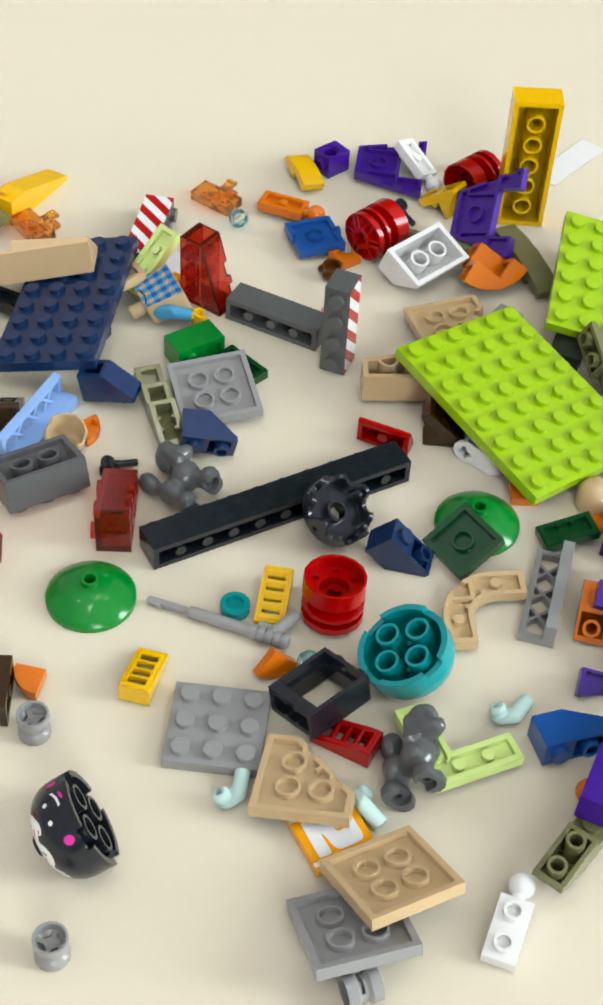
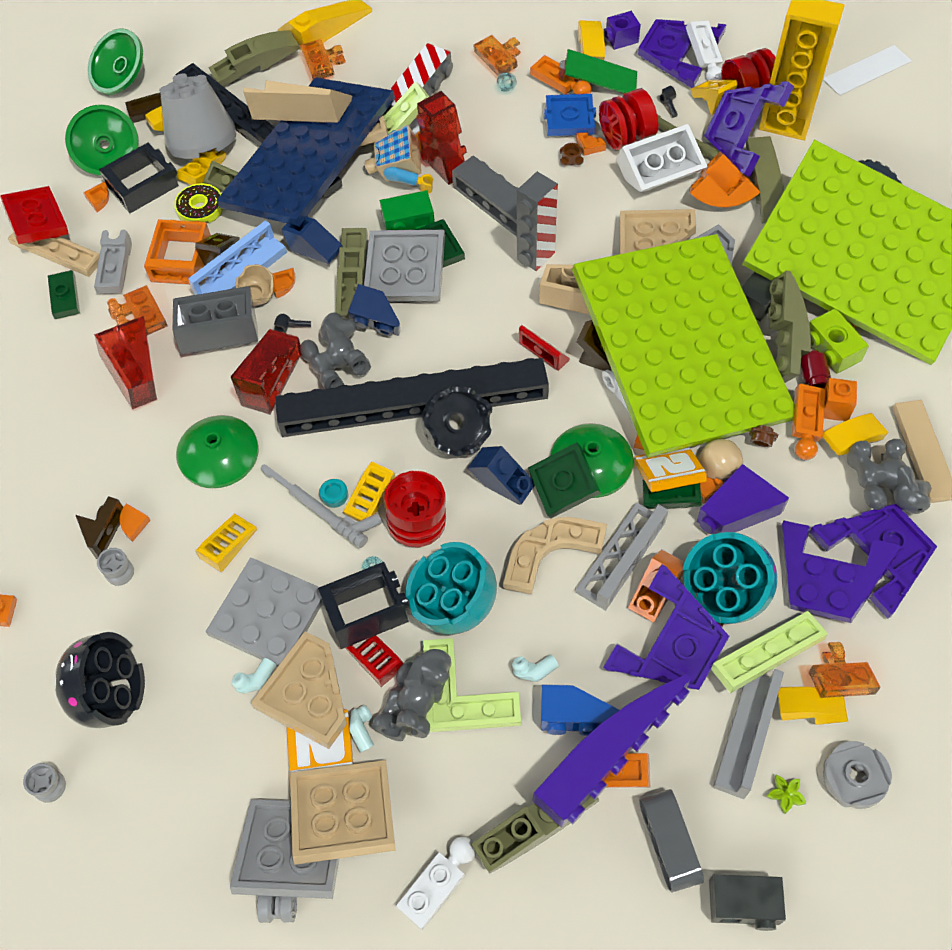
camera: 25 degrees right, 15 degrees up
(274, 664) = (341, 562): orange tile -> none
(324, 196) = (598, 72): none -> green piece
(558, 511) = (670, 470): none -> tile

